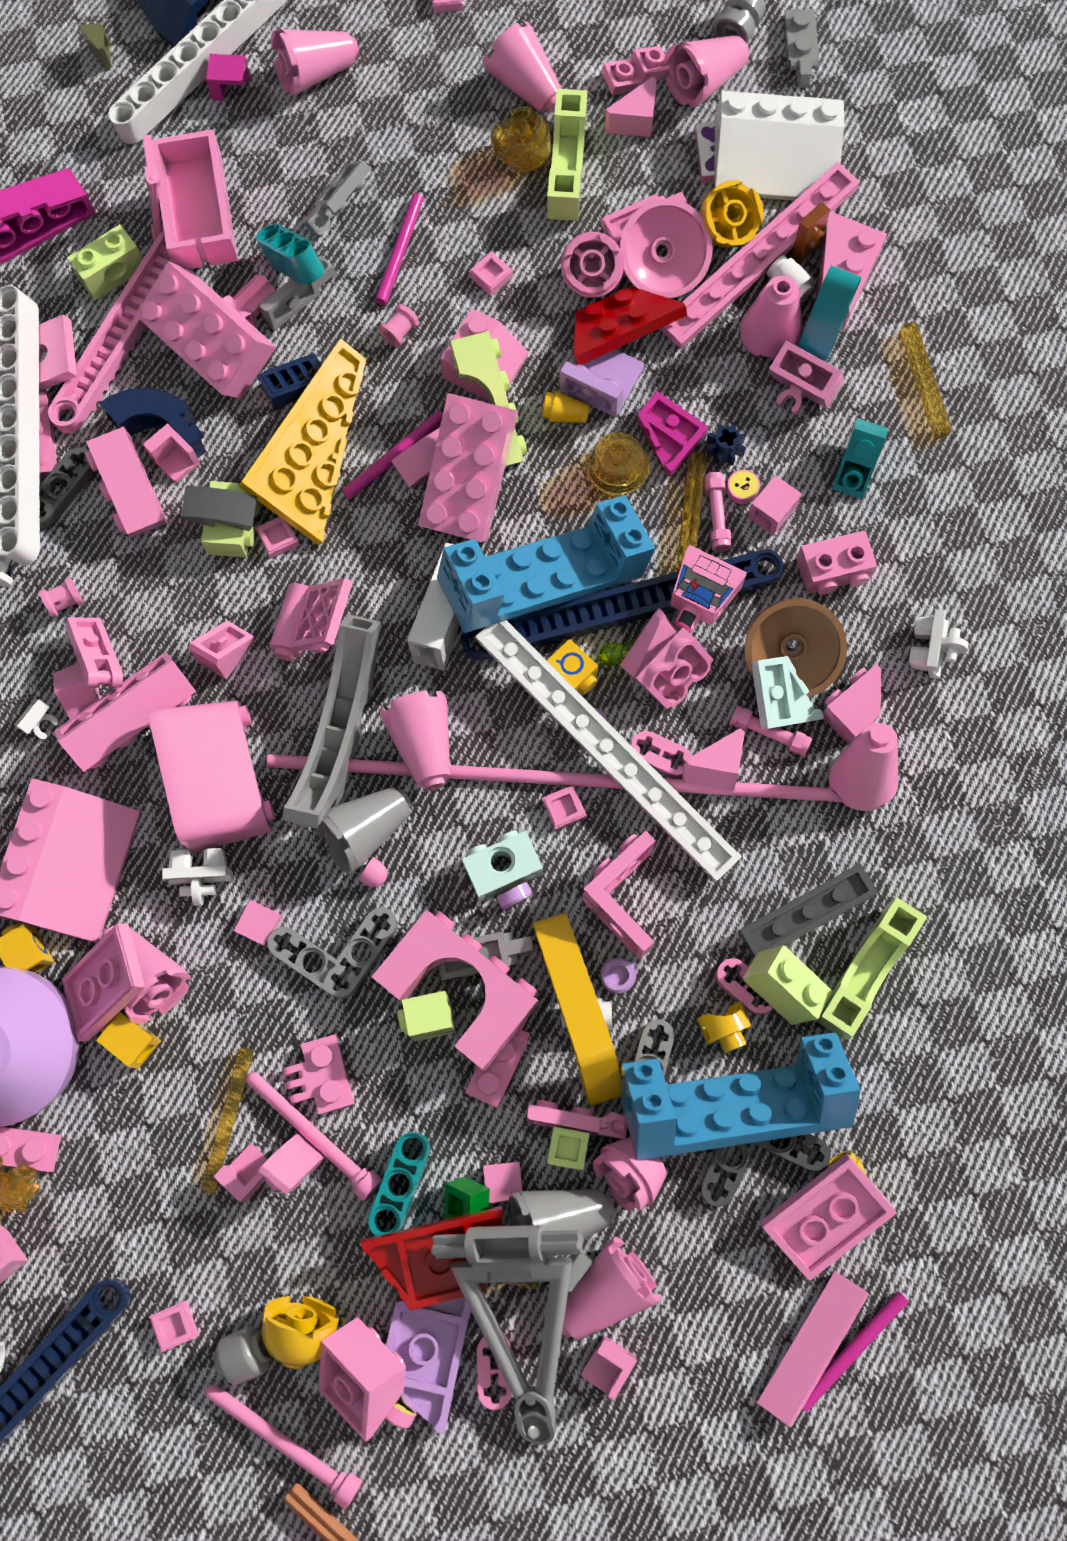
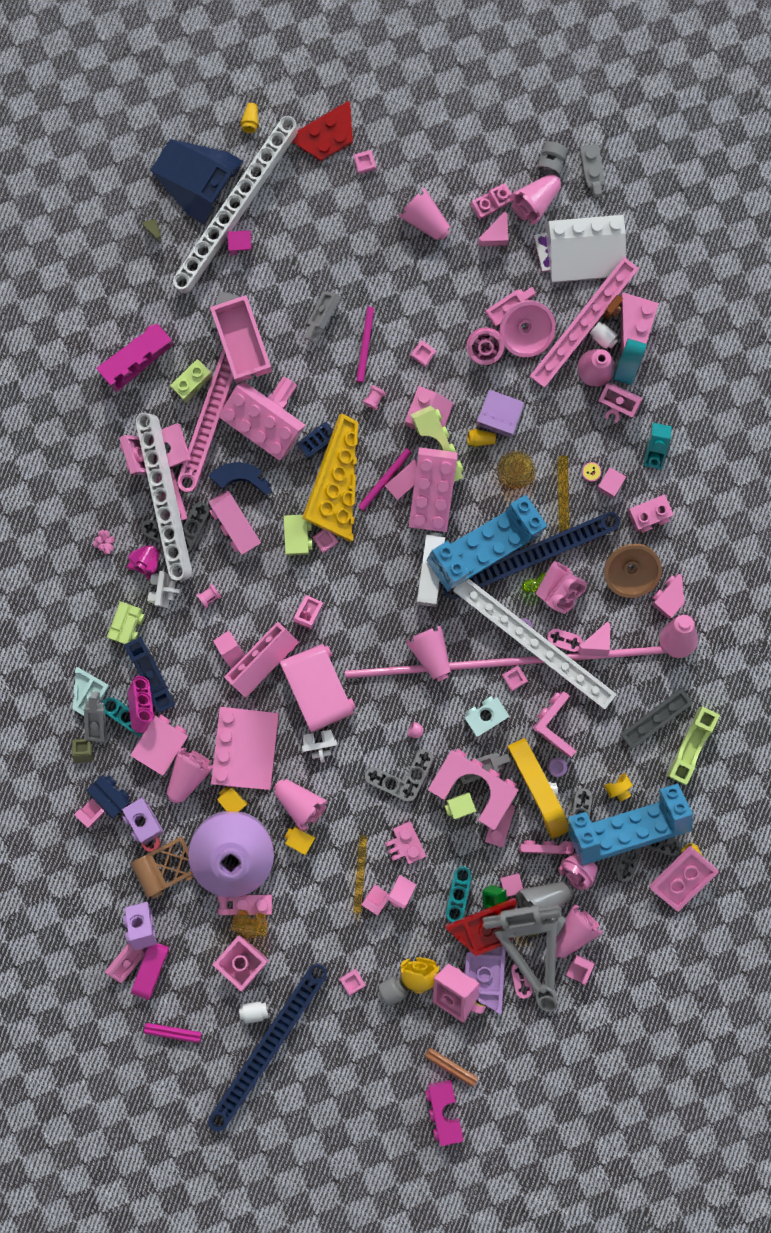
camera: 10 degrees left, 10 degrees up
(33, 716) = (208, 669): white tile -> none
(94, 652) = (237, 628): bright pink plate -> none
(103, 982) = (283, 813): bright pink tile -> none
(153, 183) = (215, 336): bright pink window -> none
(171, 453) = (255, 498): bright pink panel -> none
(219, 506) = (293, 533): dark grey slope -> none
(257, 923) = (356, 766): bright pink tile -> none
(290, 253) = (303, 364): teal beam -> none
(292, 297) = (309, 383): light grey hinge -> none
(298, 619) = (349, 591): bright pink piece -> none
(311, 56) = (290, 223): bright pink cone -> none
(338, 731) = (383, 652): light grey arch -> none
(342, 1485) = (452, 1045): bright pink piece -> none
(362, 826) = (405, 706): light grey cone -> none
(363, 1181) = (438, 895): bright pink piece -> none
(514, 896) = (495, 732): lavender tile -> none
(522, 140) = (430, 265): clear yellow cone -> none
(567, 155) = (458, 271): yellowish green arch -> none
(568, 1148) = (544, 863): yellowish green tile -> none
(575, 667) = (509, 598): yellow brick -> none
(621, 320) = (506, 378): red wing -> none
(670, 431) = (544, 443): dark pink wing -> none
(704, 588) = (577, 543): torso -> none
(720, 536) = (575, 474): bright pink bar -> none
(725, 444) = (580, 442): dark blue gear -> none
(732, 214) = (564, 301): yellow cylinder -> none
(735, 990) = (624, 767): bright pink beam -> none
(781, 694) = (628, 598): light aqua wing -> none
(787, 985) = (649, 761): yellowish green brick -> none
(797, 742) = (639, 622): bright pink bar -> none
(813, 1349) = (683, 944): bright pink tile -> none
(856, 1347) = (703, 943): dark pink bar -> none
(925, 380) = (690, 389): clear yellow axle -> none
(936, 631) = (711, 546): white hips -> none

